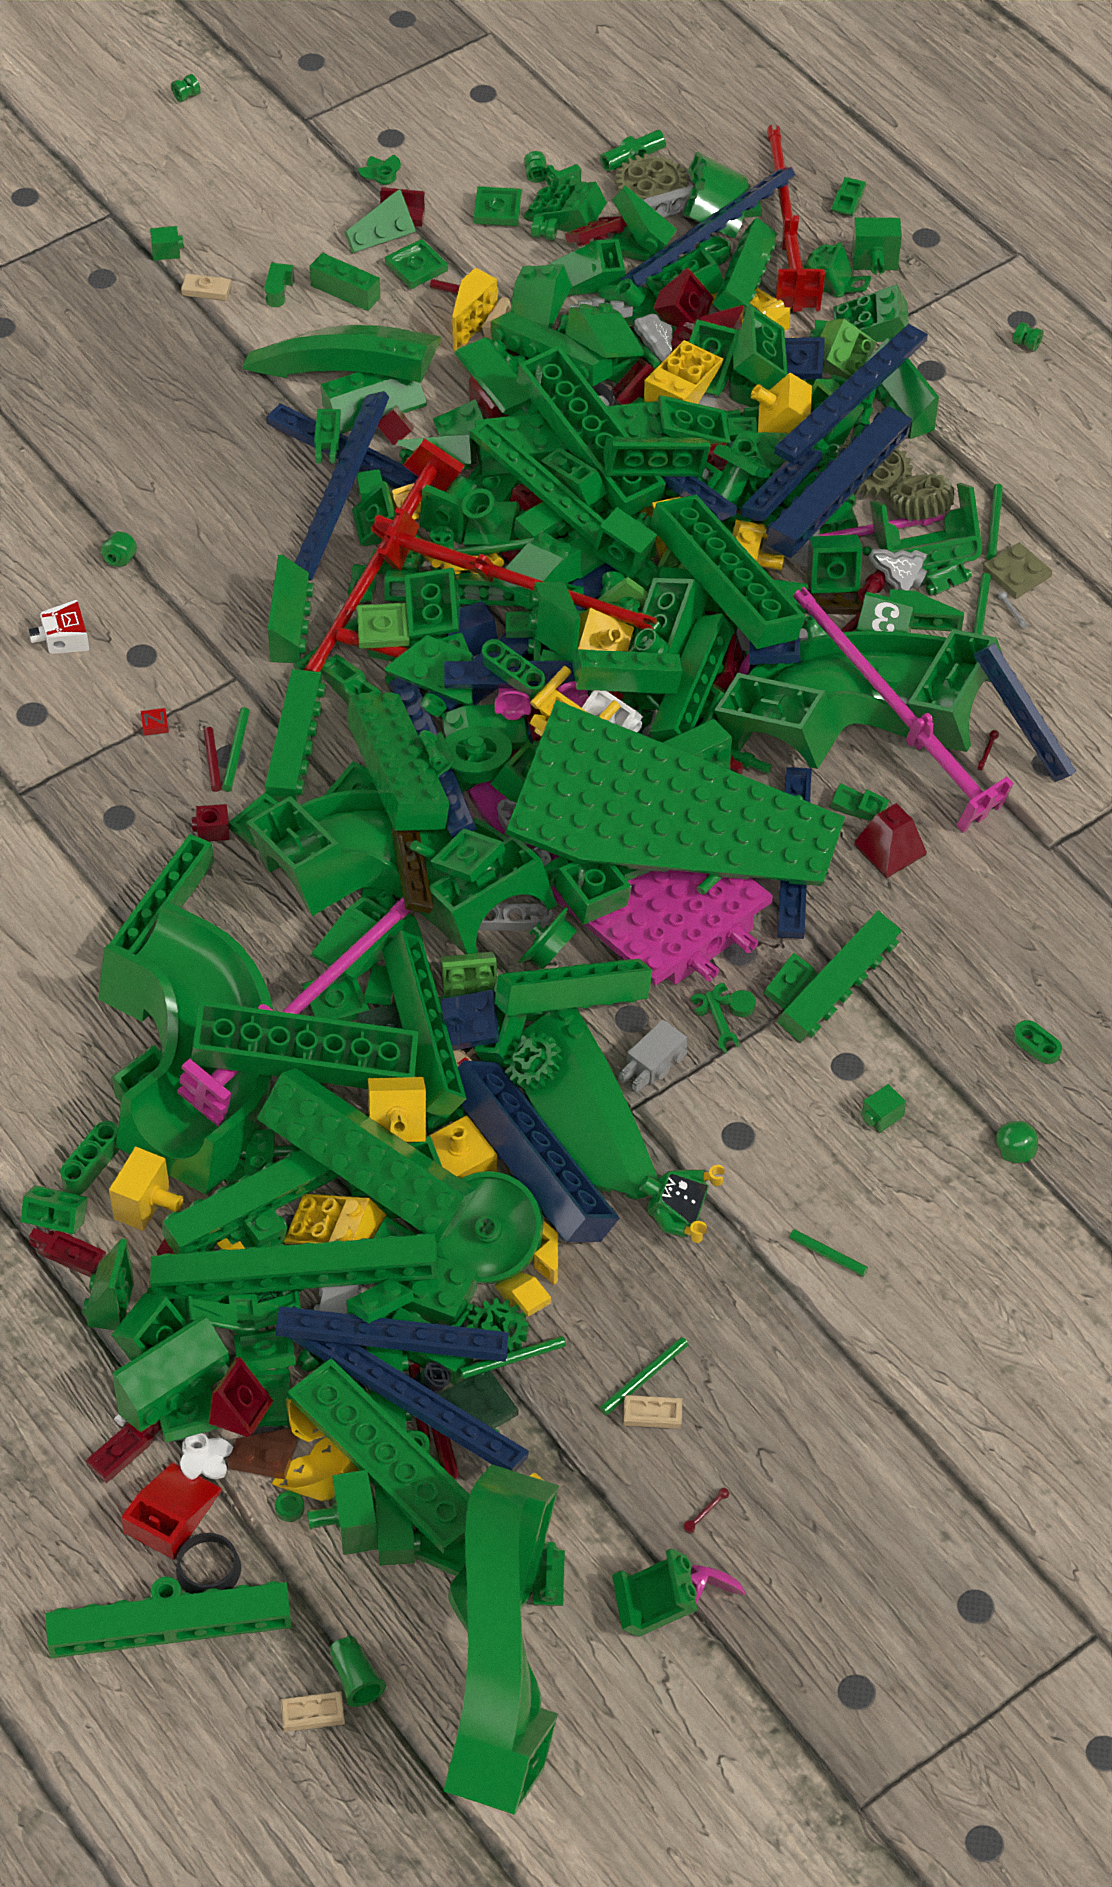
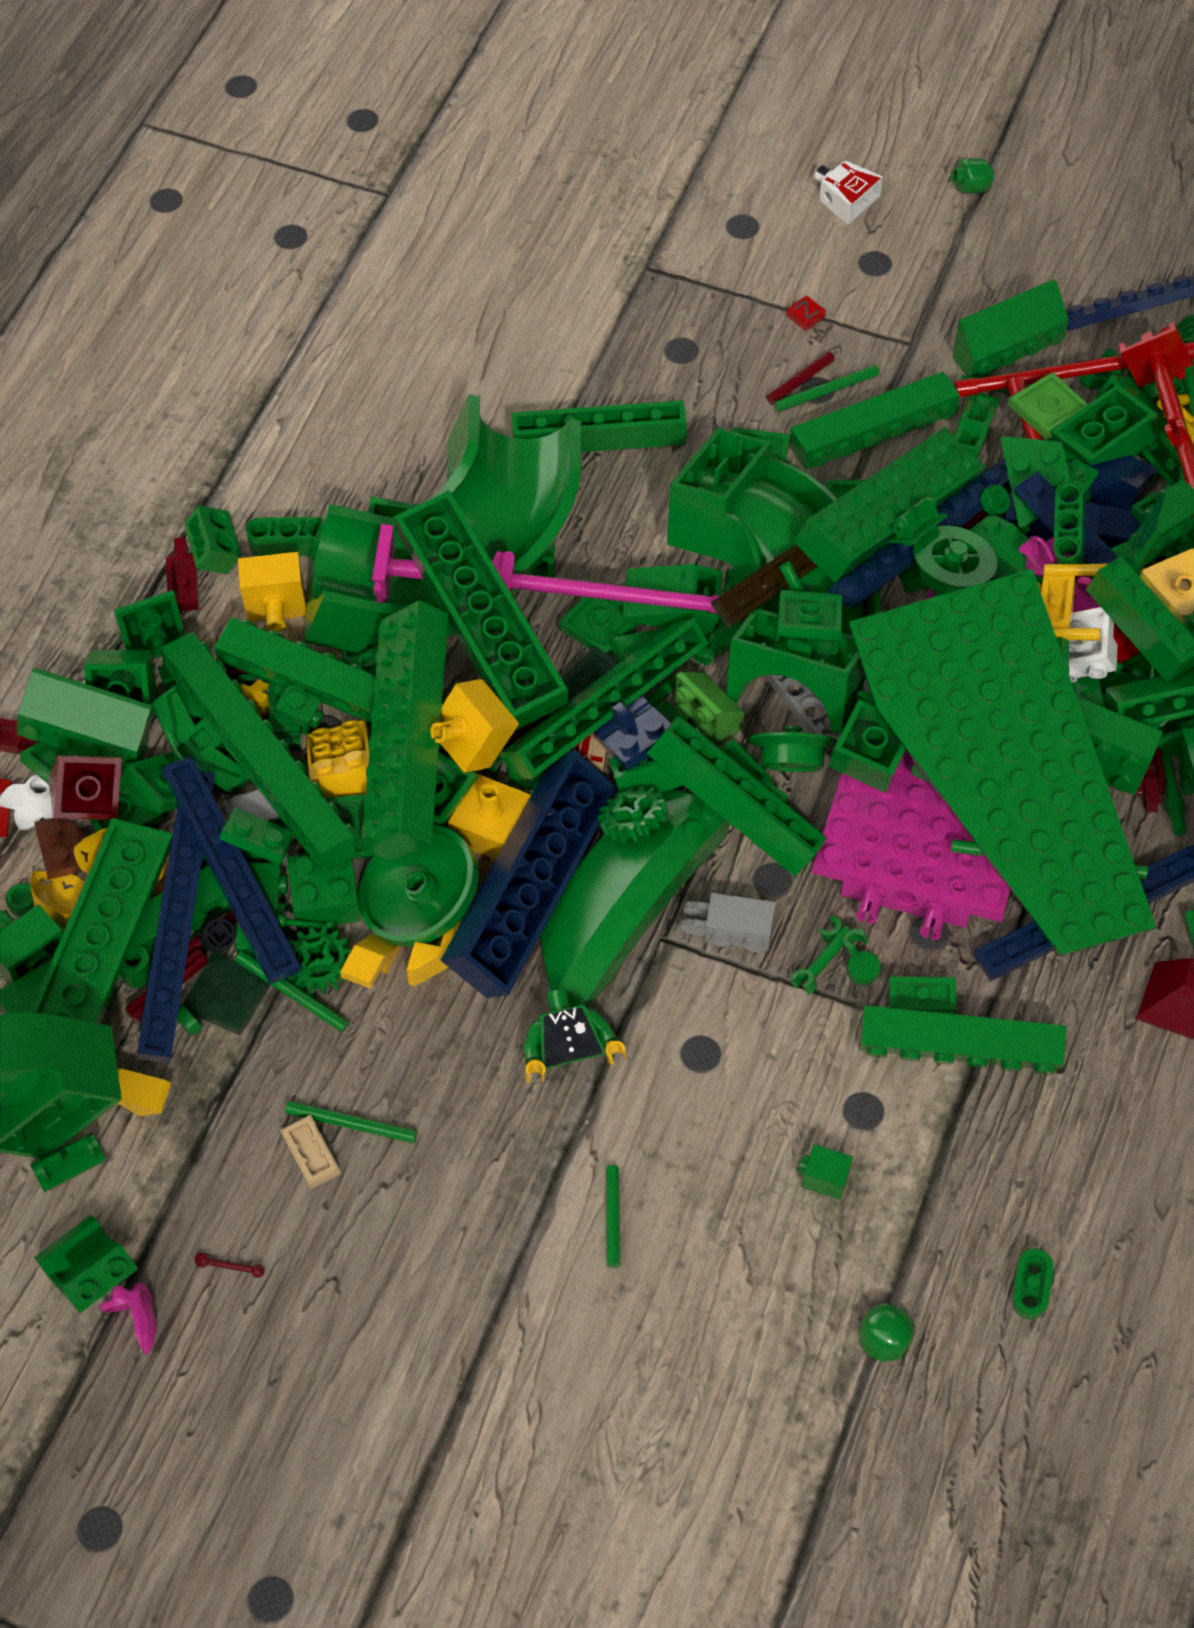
camera: 60 degrees right, 5 degrees up
(211, 822) = (723, 413): dark red brick -> none

